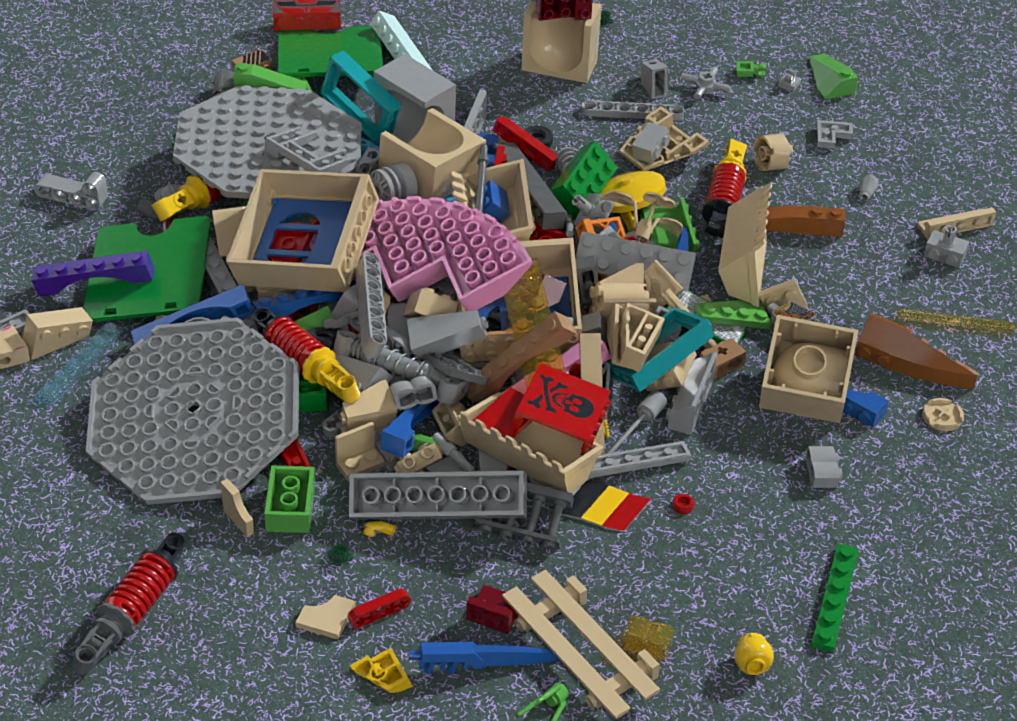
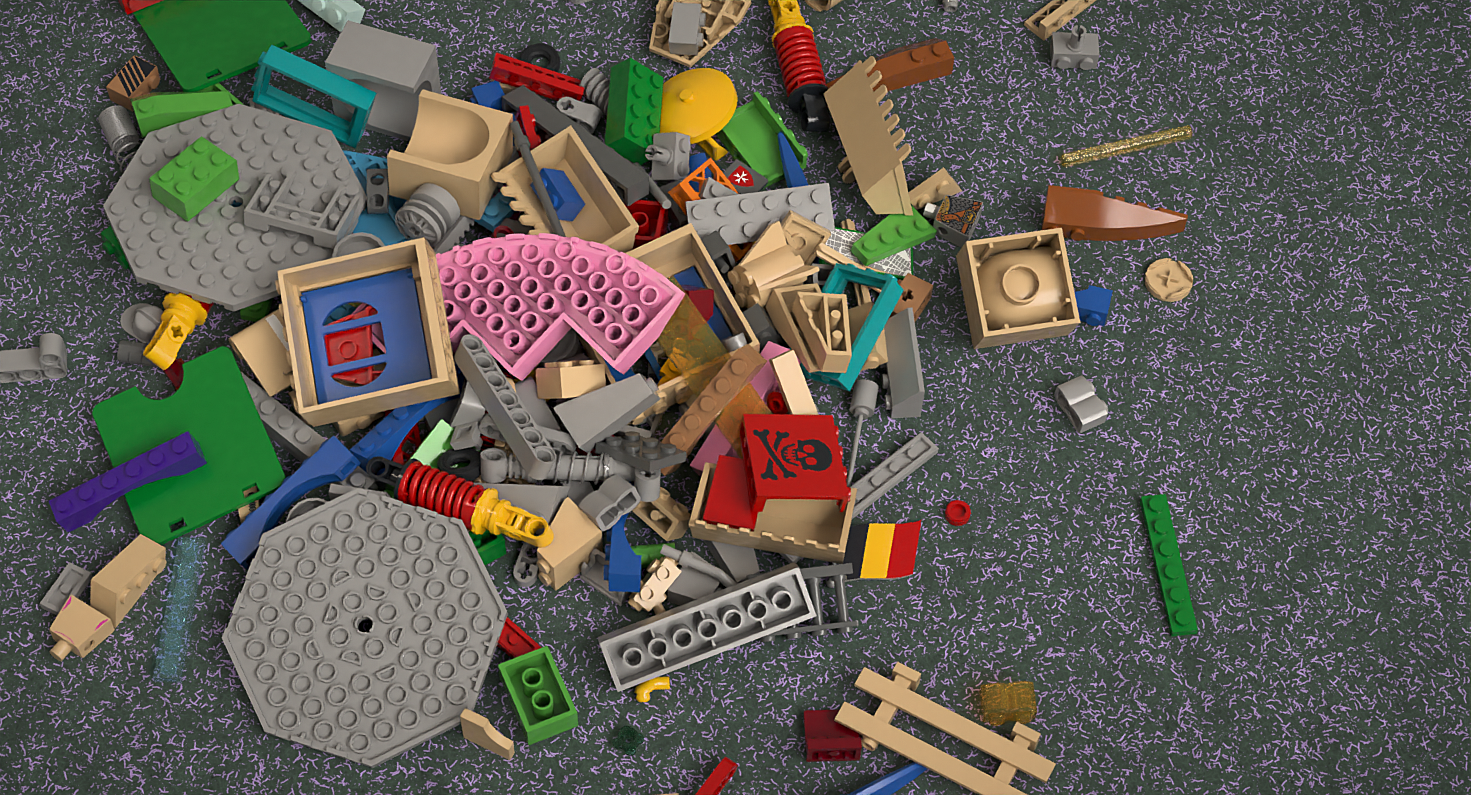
camera: 25 degrees left, 15 degrees up
(246, 112) = (194, 178): none -> bright green brick
(357, 451) = (579, 602): tan bracket -> none
(478, 113) = (456, 58): light grey plate -> none
(546, 171) = (581, 113): none -> light grey piece
(644, 227) = (746, 161): tan plant -> none
(753, 654) = (1126, 677): yellow piece -> none

